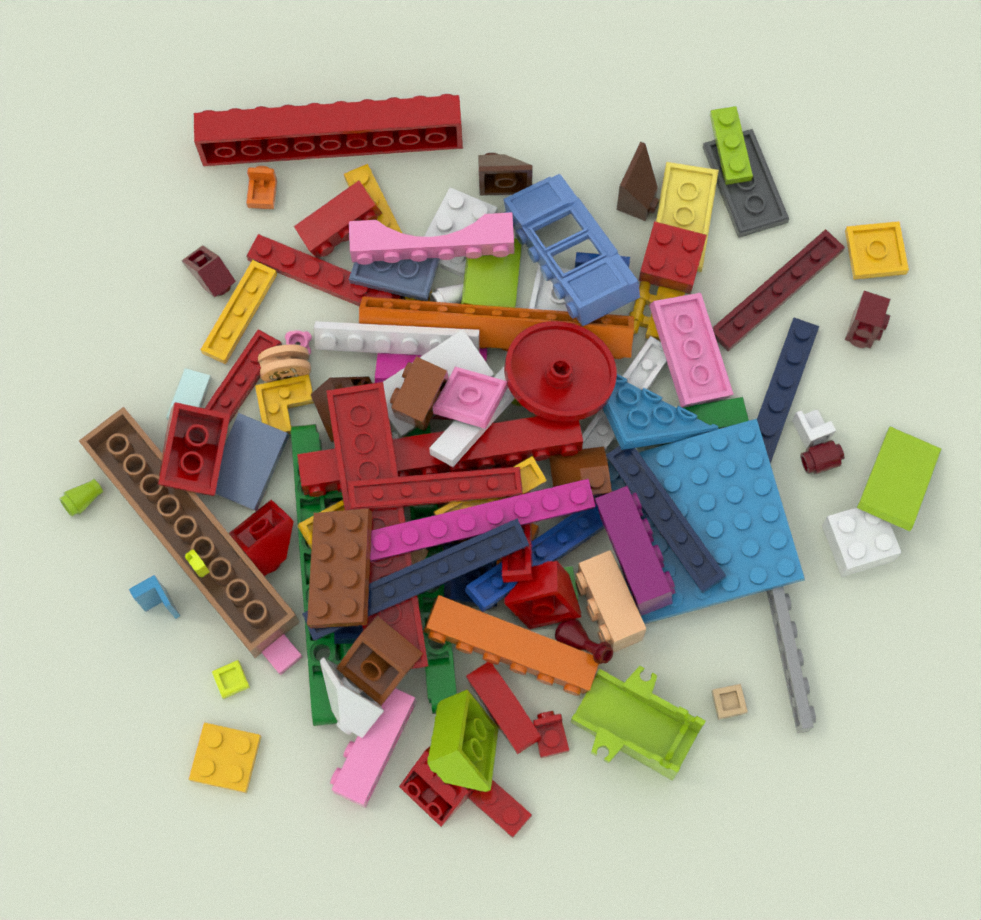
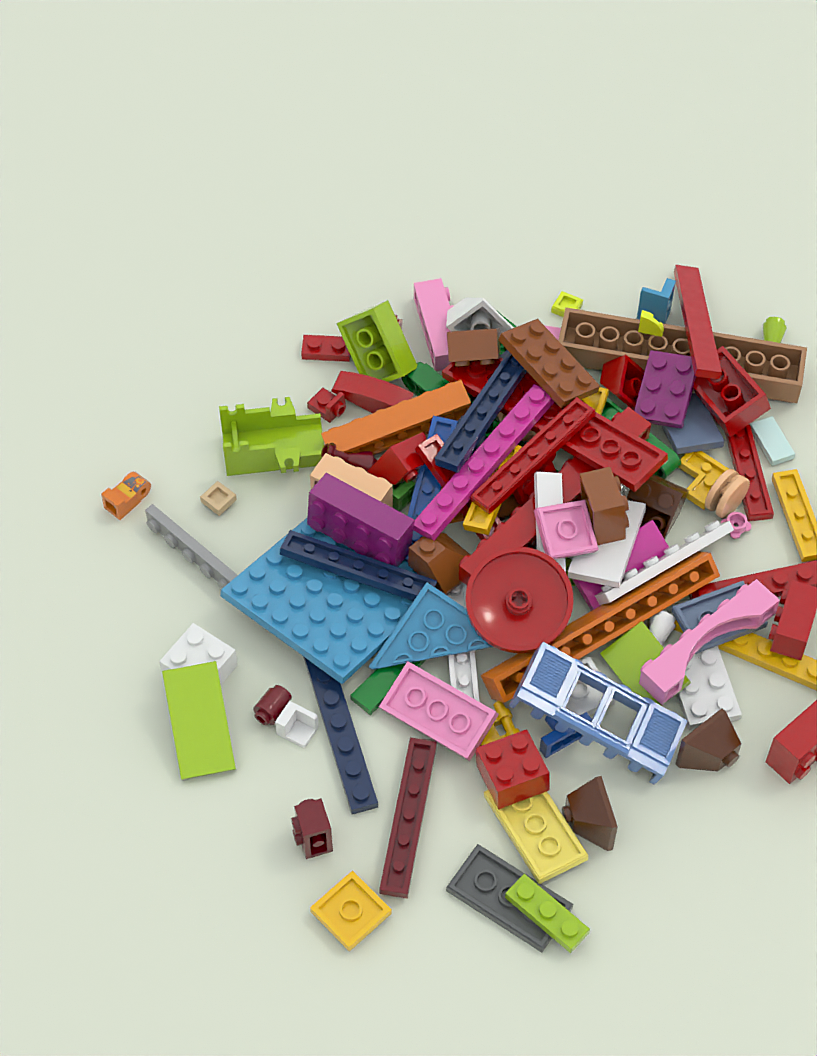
camera: 140 degrees right, 15 degrees down
(147, 540) = (697, 322): none -> tile
(225, 757) = (527, 265): yellow plate -> none
(243, 491) = (666, 389): none -> magenta plate
(814, 770) = (126, 495): none -> orange leg

